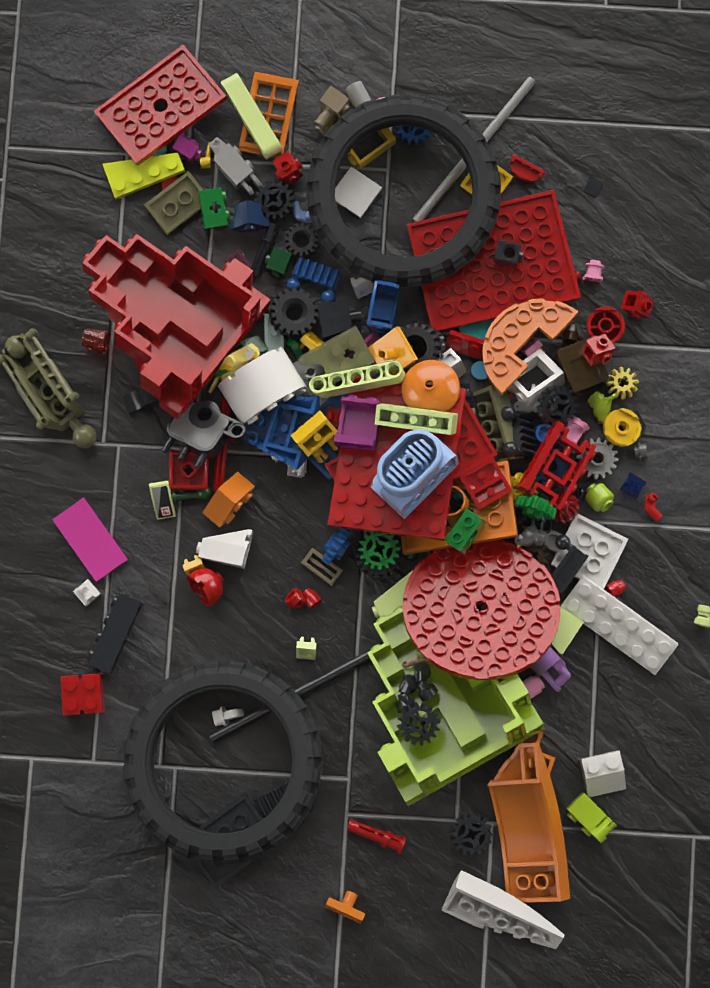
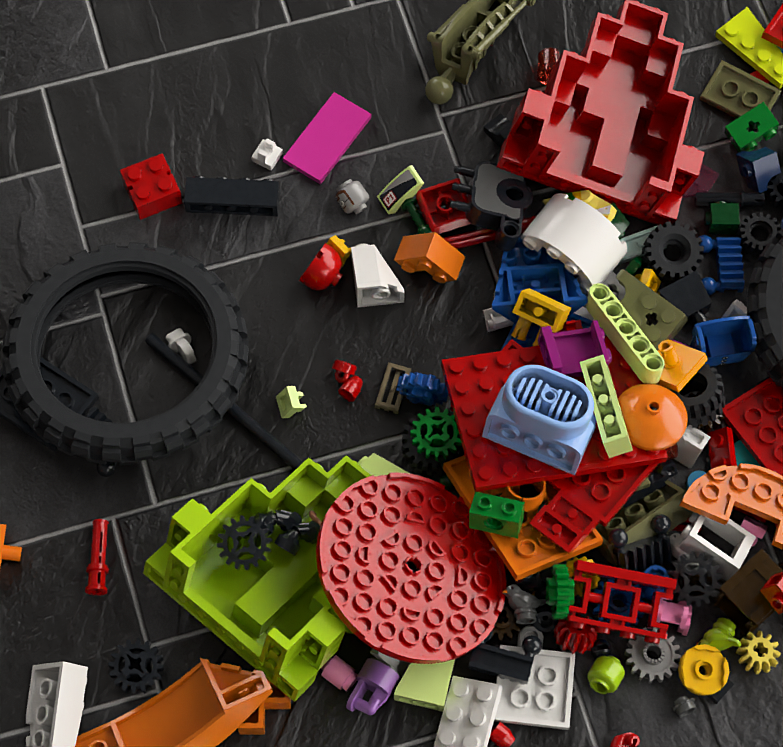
camera: 65 degrees right, 15 degrees down
(152, 539) = (352, 197): none -> light grey head
(633, 485) = (638, 712): clear blue tile -> none

